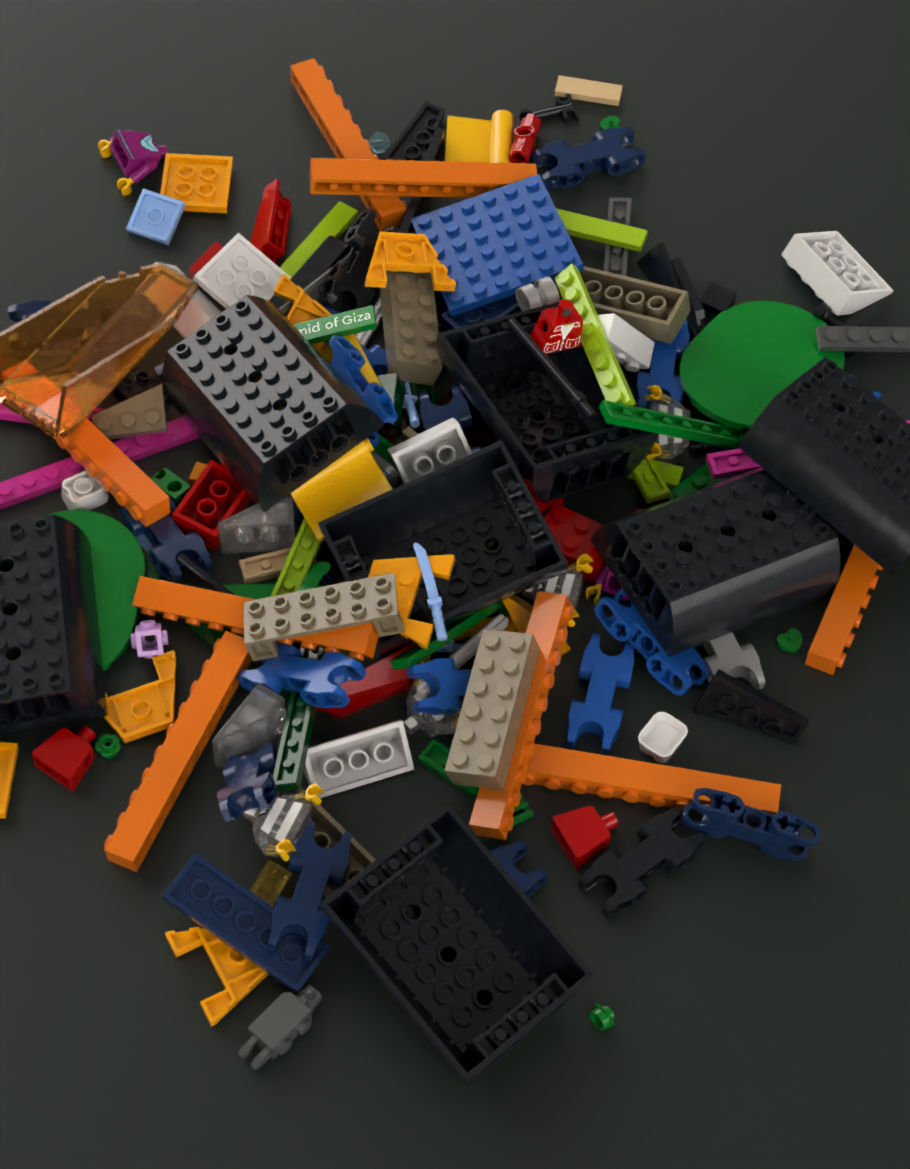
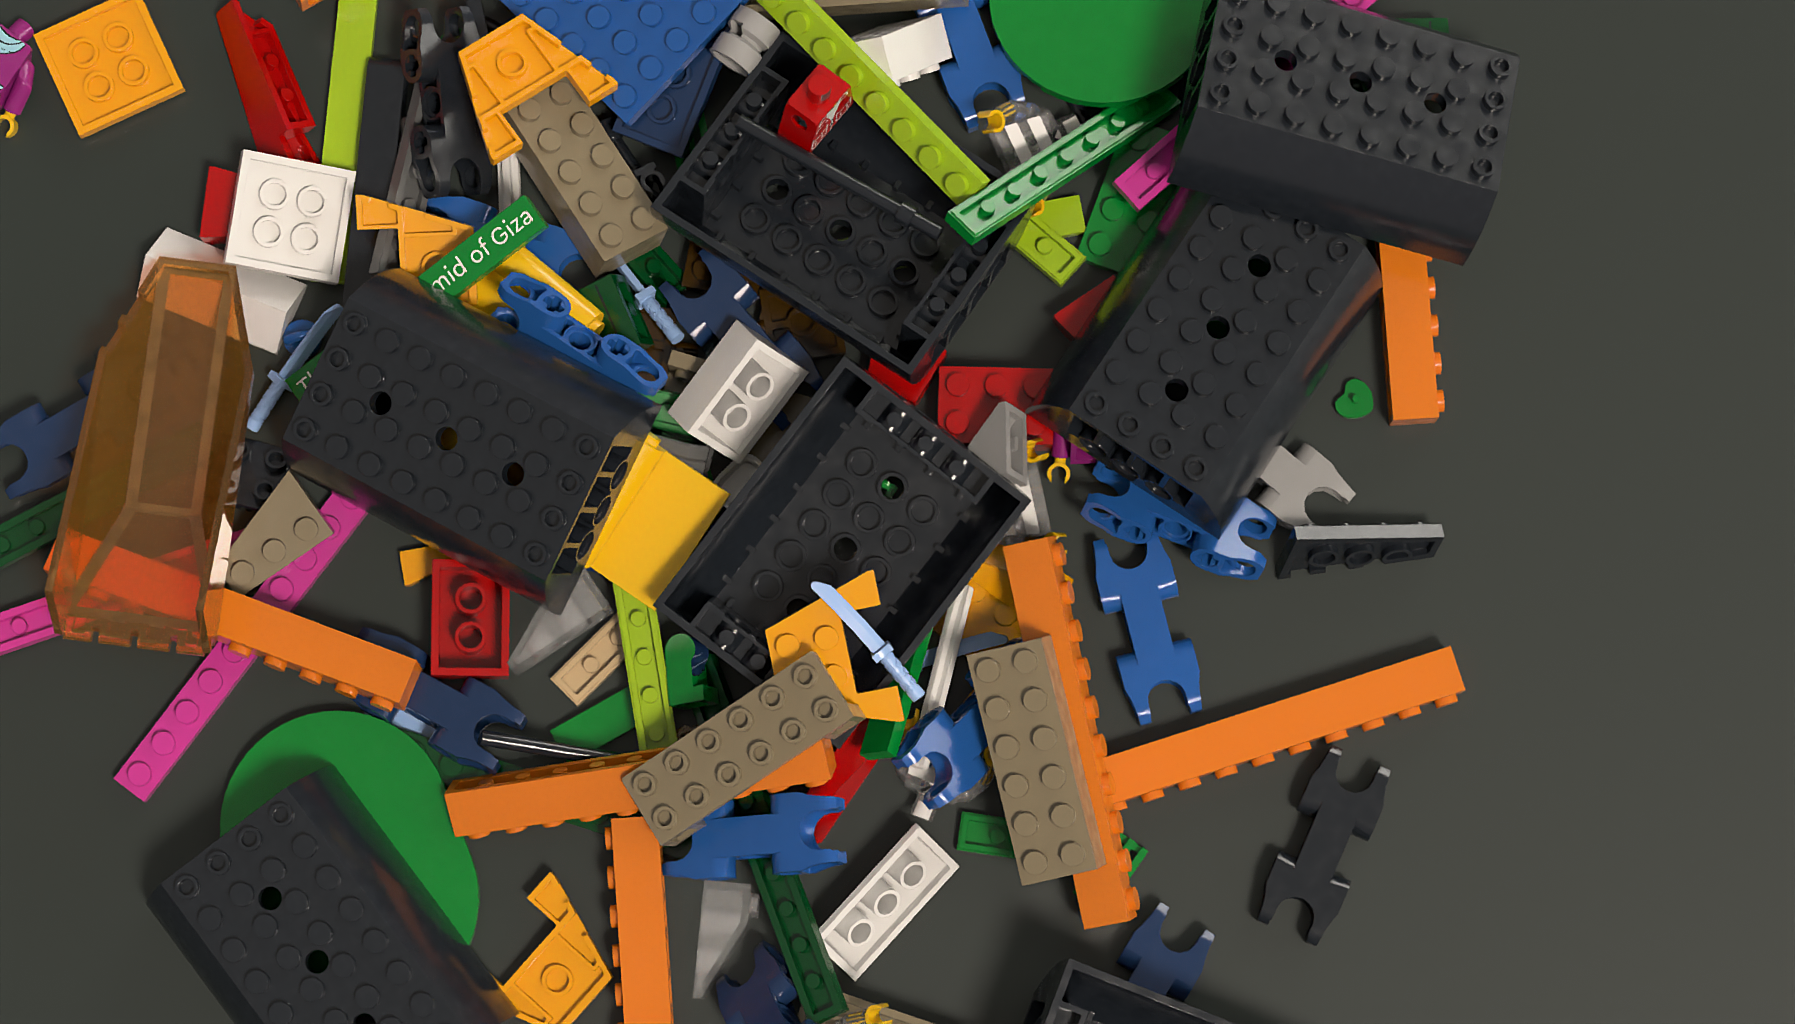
camera: 25 degrees left, 25 degrees up
(83, 492) = (270, 691): white piece -> none
(145, 647) = (508, 873): lavender brick -> none
(155, 217) = (88, 160): light blue tile -> none
(171, 484) = (392, 617): green leg -> none
(573, 543) = (1004, 443): none -> light grey slope
(583, 833) = (1229, 847): red torso -> none
(662, 736) = (1260, 648): white piece -> none
(771, 833) = (1461, 727): dark blue piece -> none

